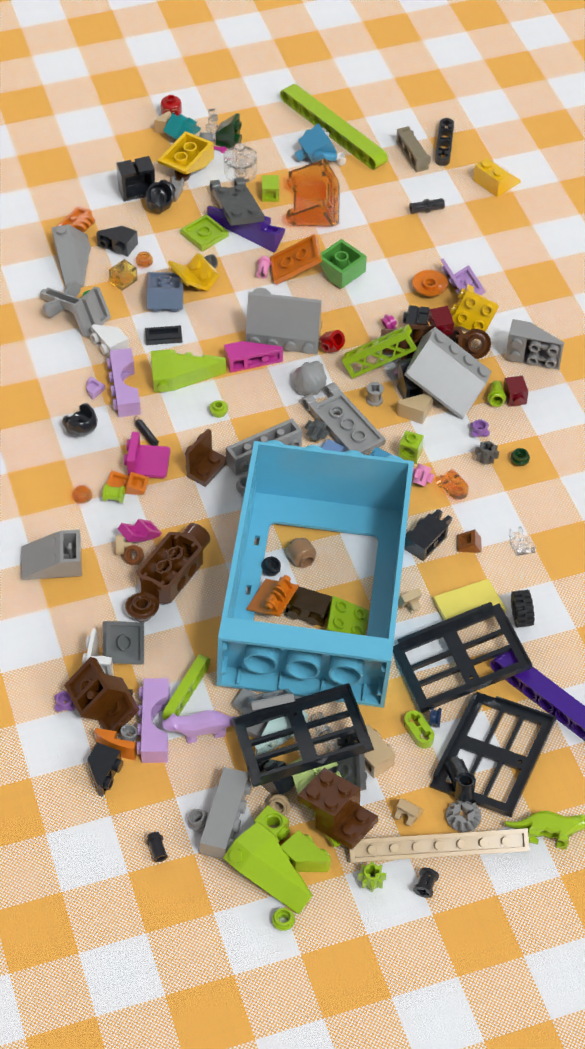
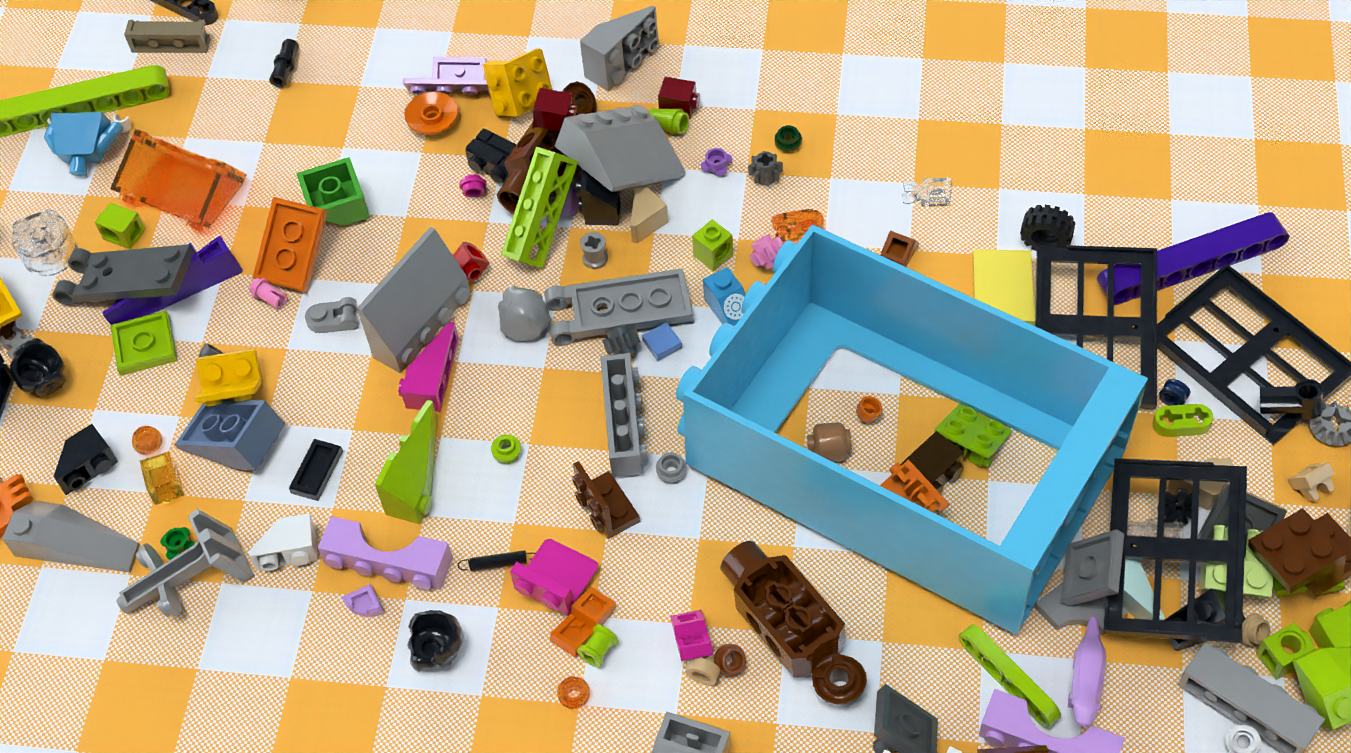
camera: 60 degrees left, 5 degrees up
(338, 561) = (866, 407): none -> orange hinge

